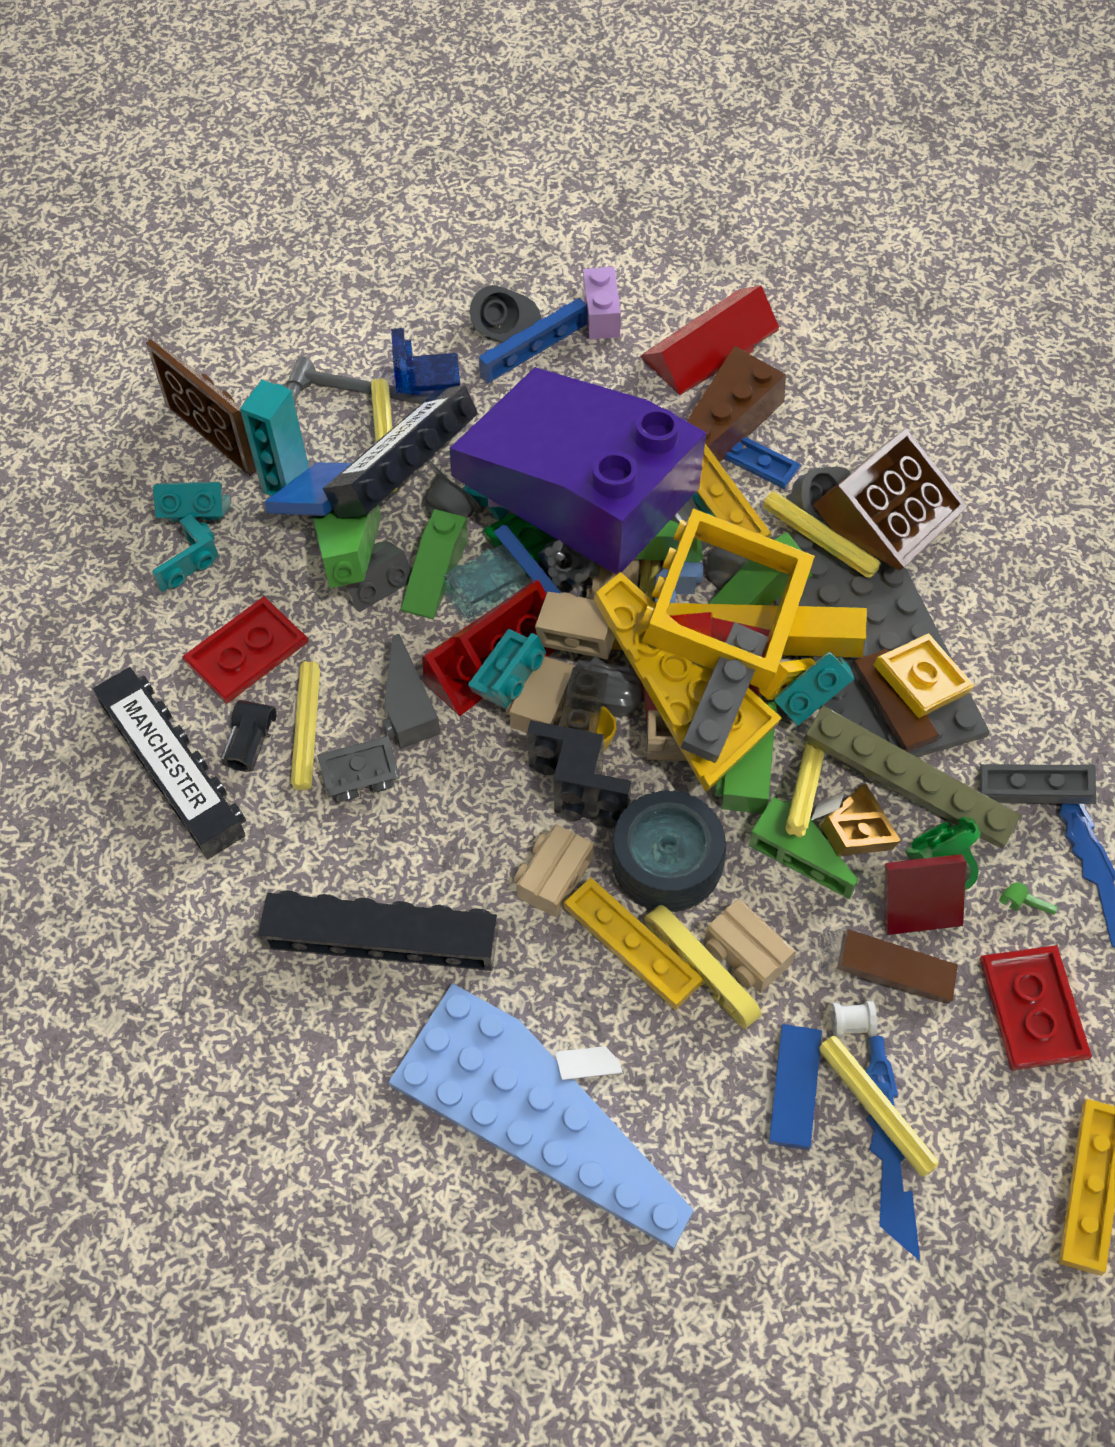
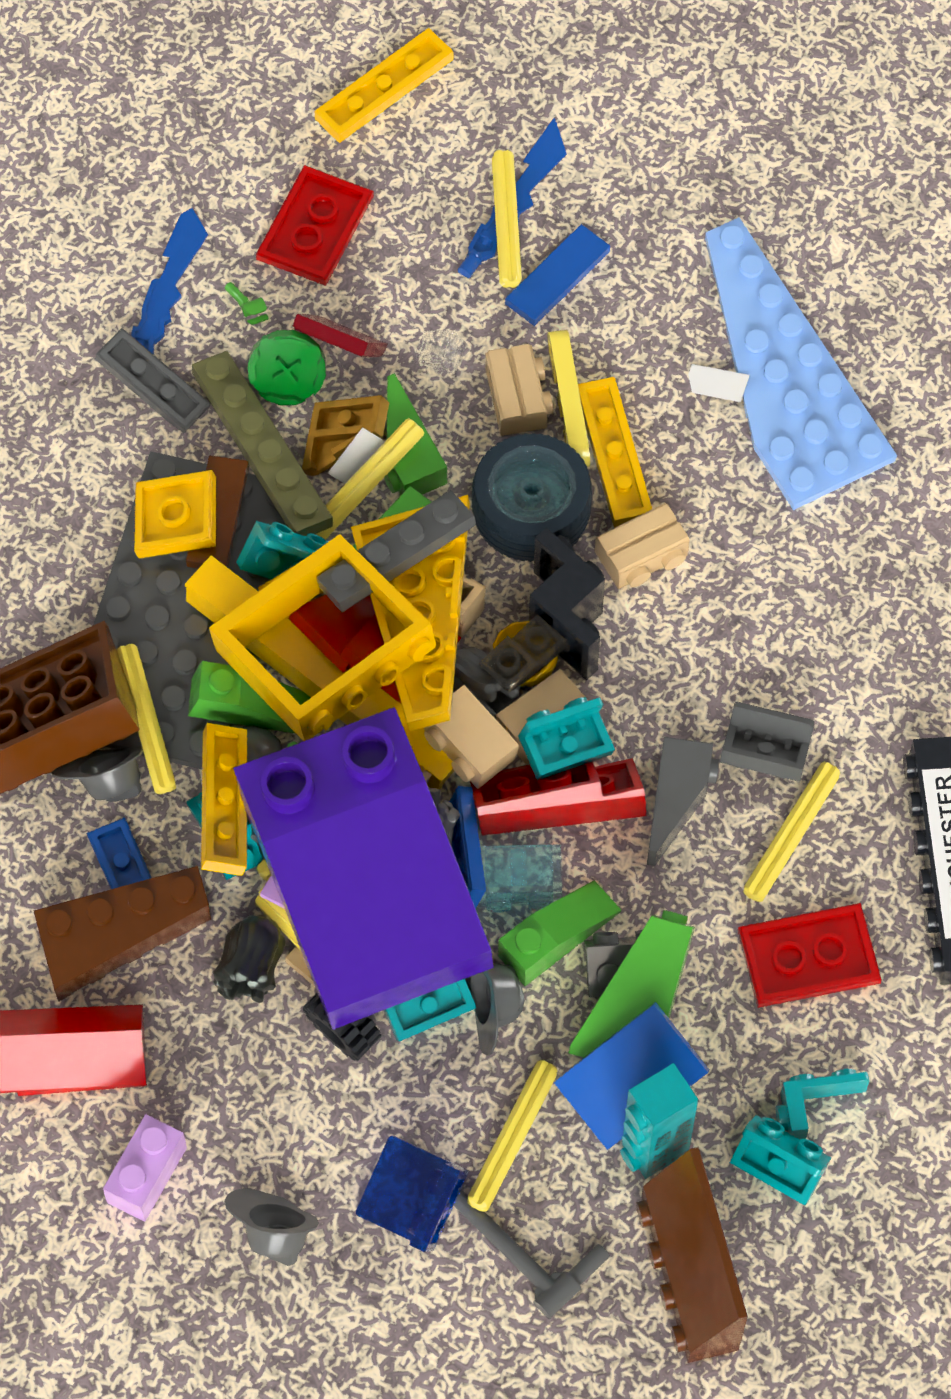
camera: 150 degrees left, 5 degrees up
(249, 728) = (852, 851): black piece -> none
(379, 930) = (834, 580): black brick -> none
(400, 452) = (516, 1054): black brick -> none
(533, 340) = (276, 1165): blue plate -> none
(854, 1019) = (473, 290): white bush -> none
(897, 966) = (406, 305): reddish brown tile -> none

